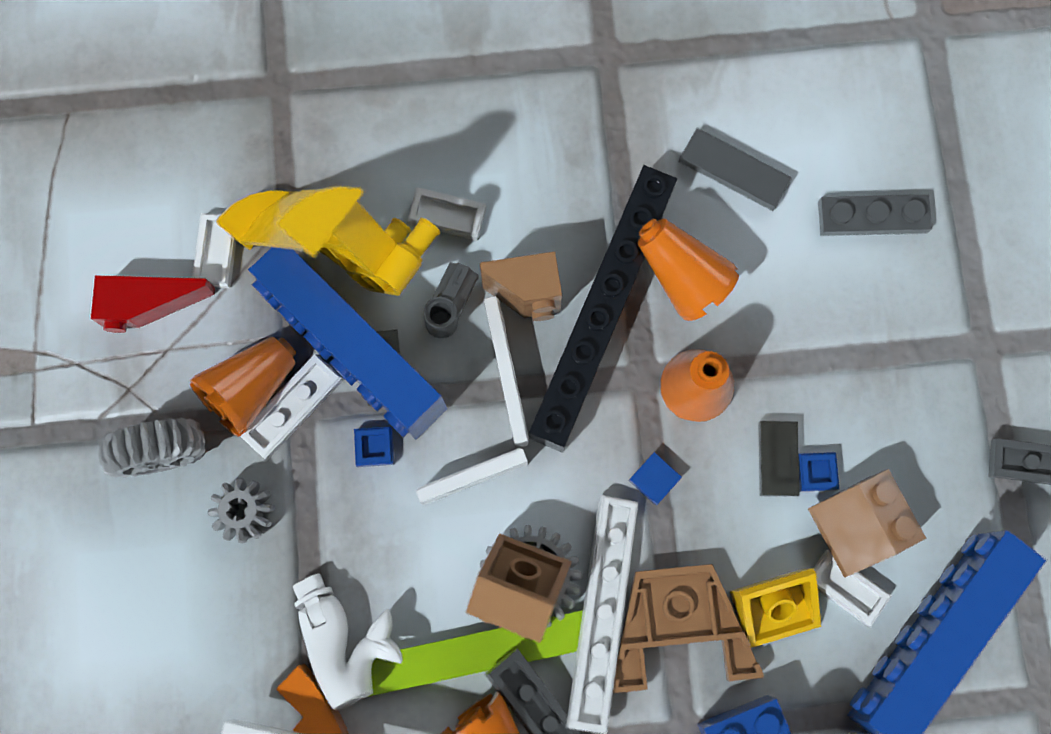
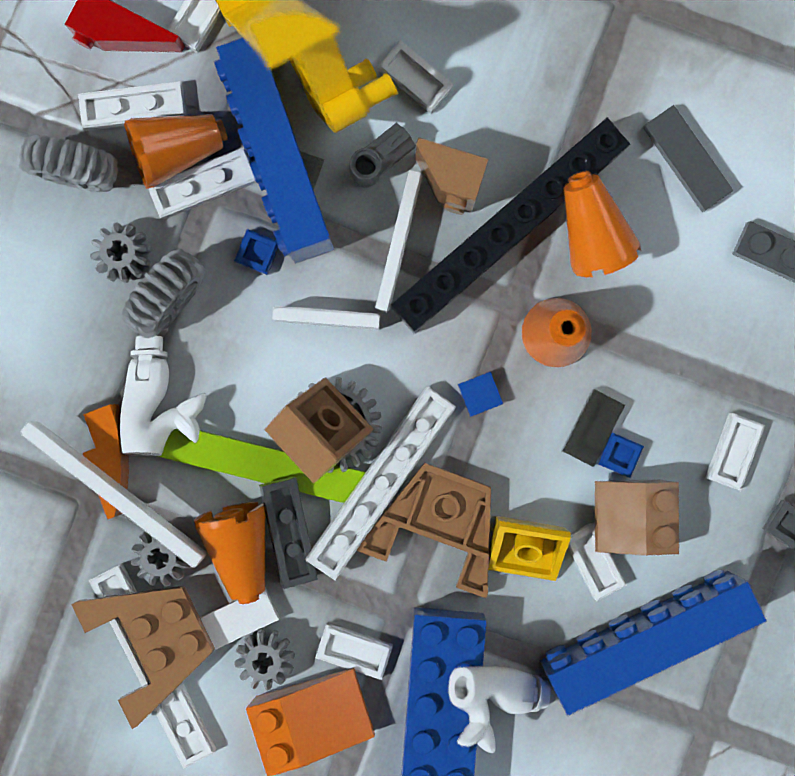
camera: 30 degrees right, 10 degrees up
(173, 374) = (114, 106): none -> white tile
(301, 529) = (163, 293): none -> light grey gear
(923, 416) = (735, 451): none -> white tile

